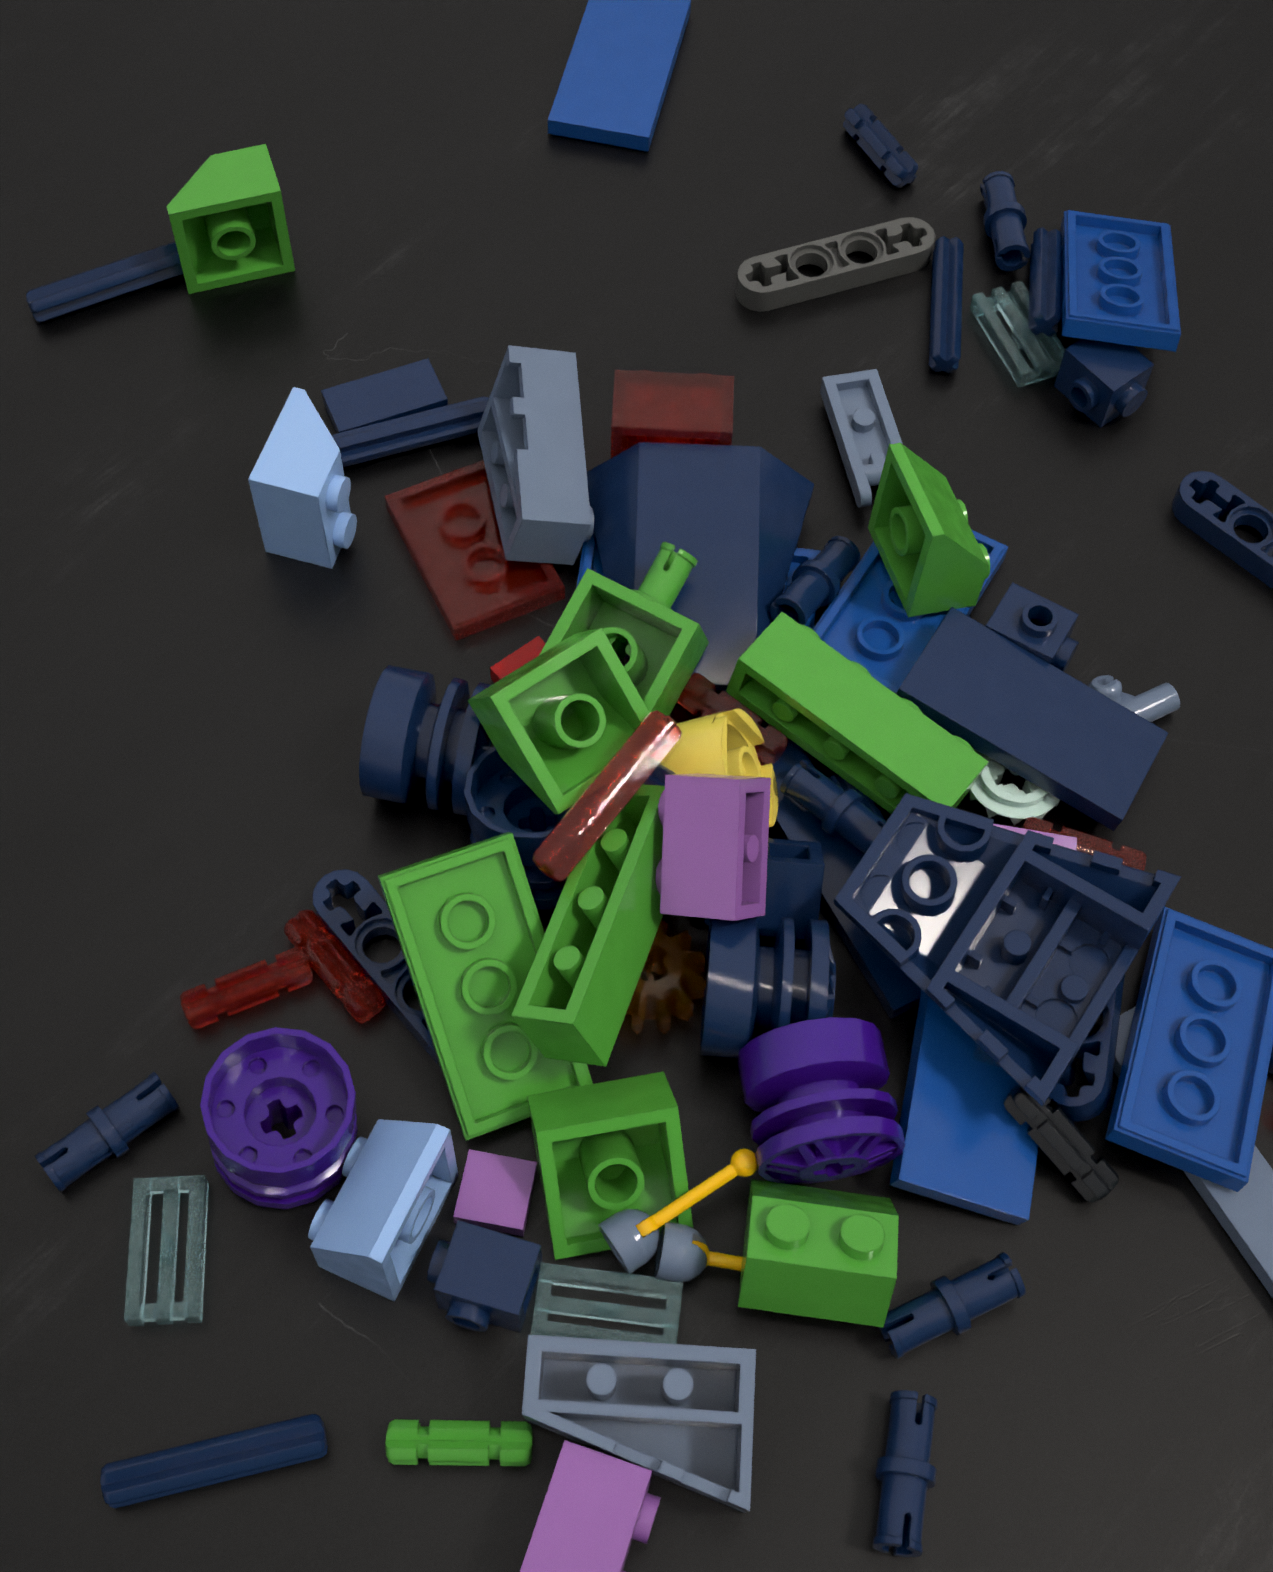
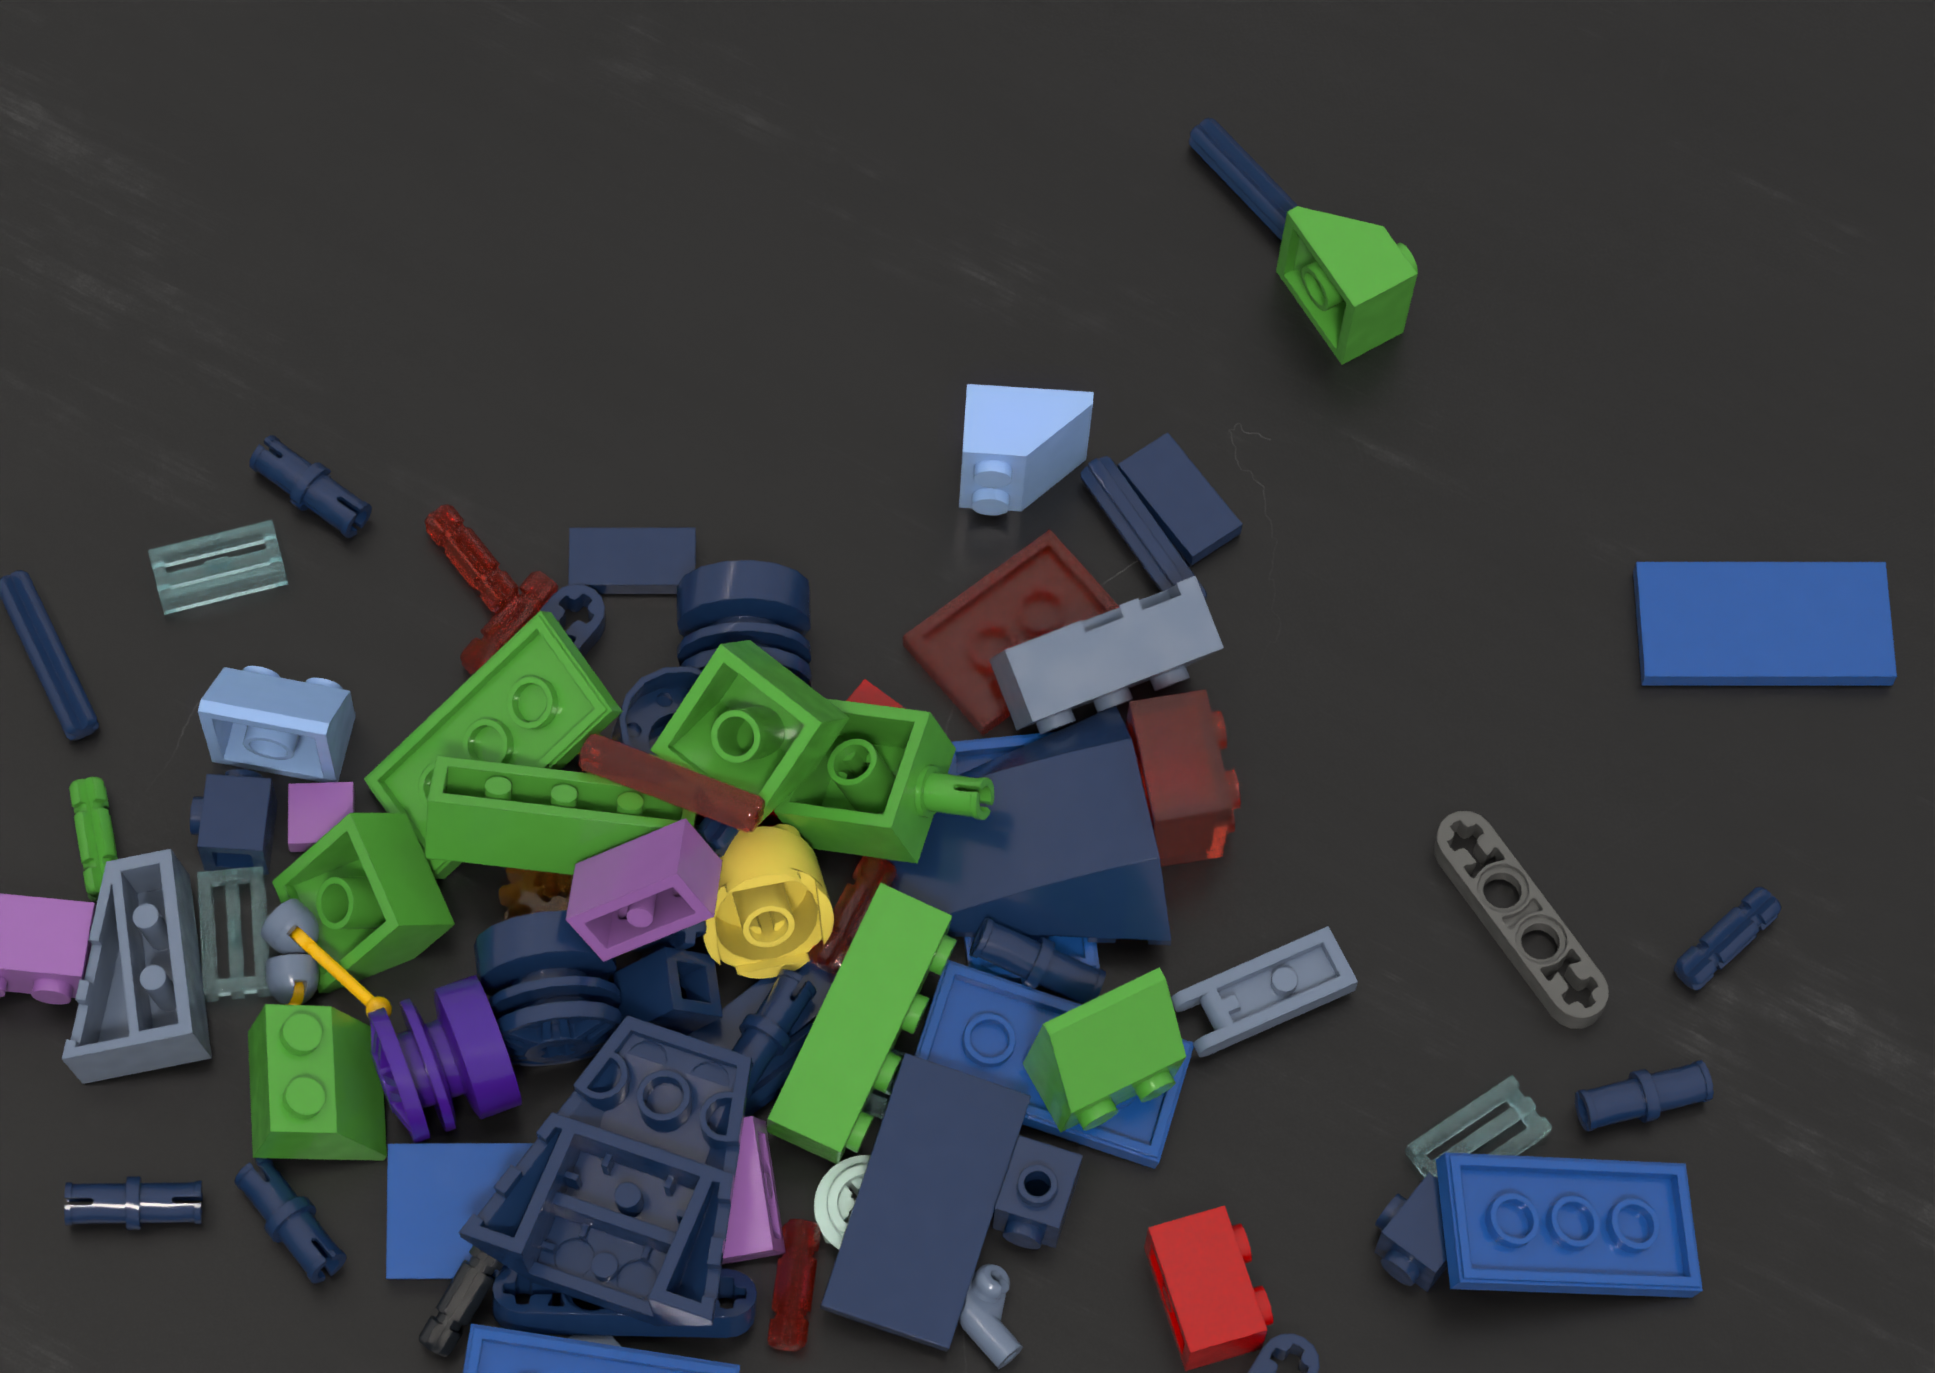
camera: 75 degrees right, 5 degrees up
(270, 1081) = (340, 580): dark purple wheel -> none
(298, 842) = (631, 559): none -> dark blue tile
(946, 305) = (1496, 1050): dark blue axle -> none
(1045, 282) = (1552, 1143): dark blue axle -> none
(1133, 534) = (1208, 1287): none -> red brick

